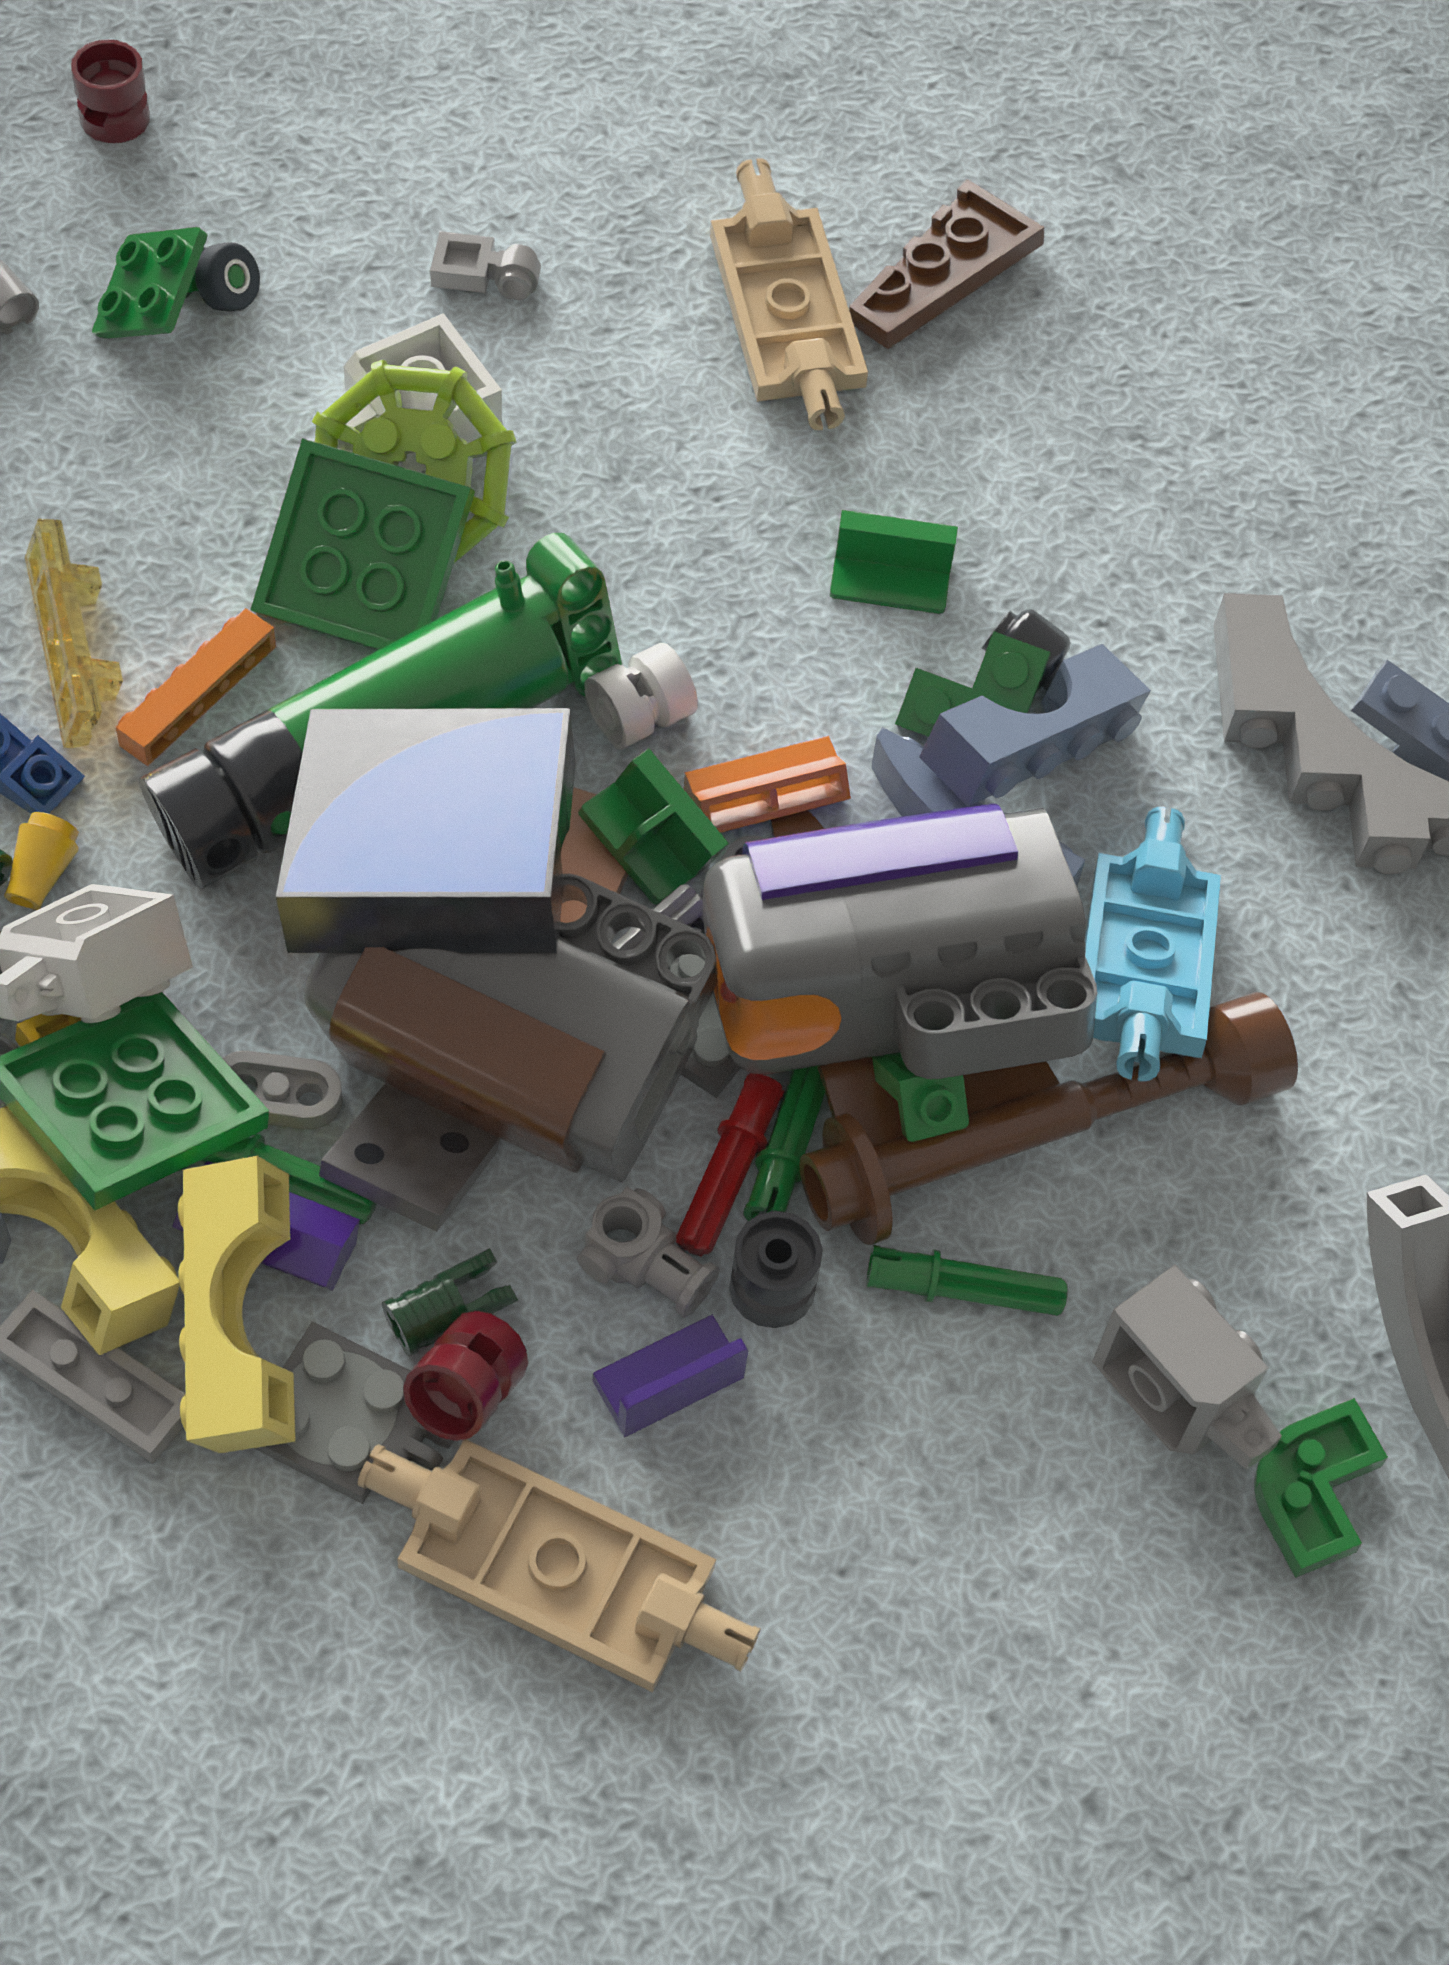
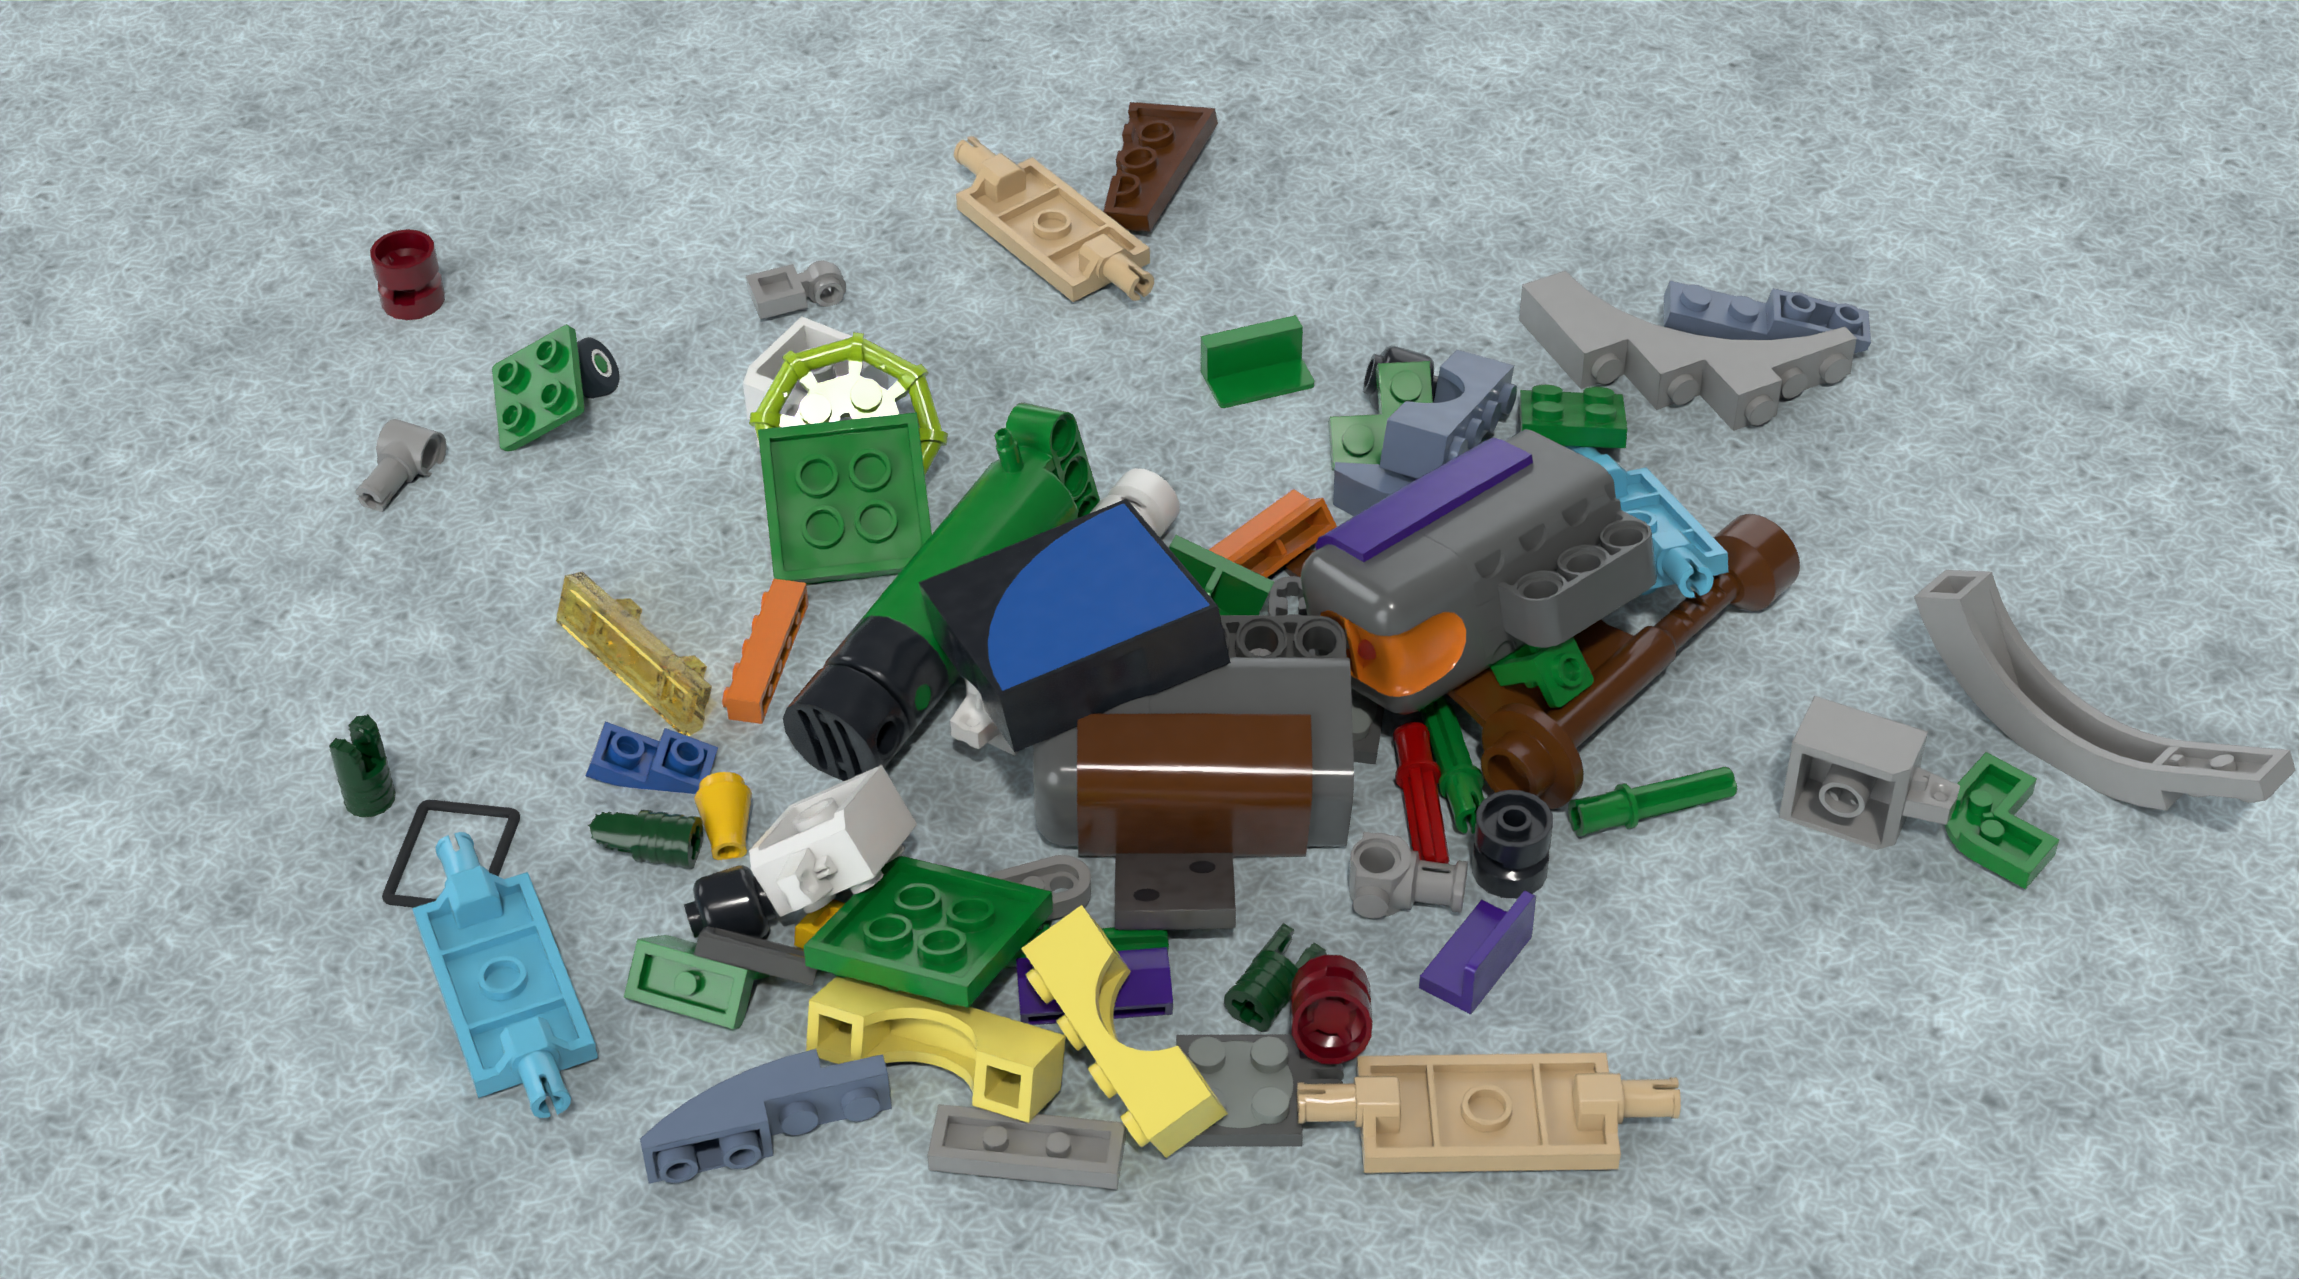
camera: 20 degrees left, 15 degrees down
(1179, 779) = (1575, 418): none -> green plate

